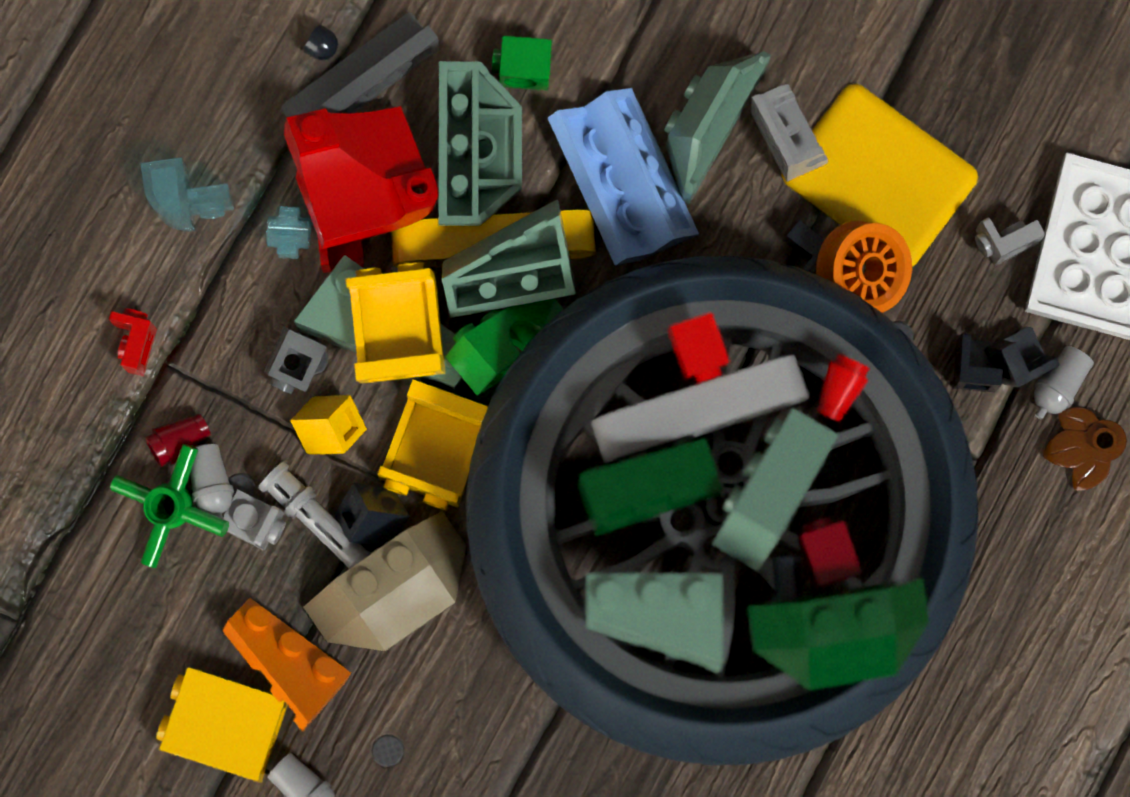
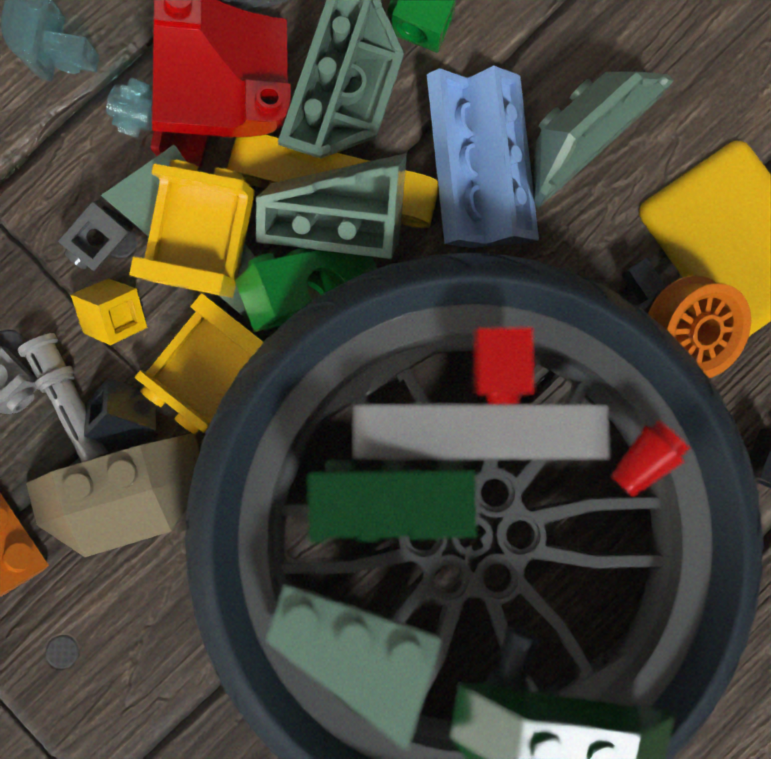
camera: 25 degrees right, 5 degrees up
(774, 488) = (538, 553): sand green wedge -> none
(787, 132) = (660, 166): light grey hinge -> none
(828, 553) = (573, 648): dark red brick -> none

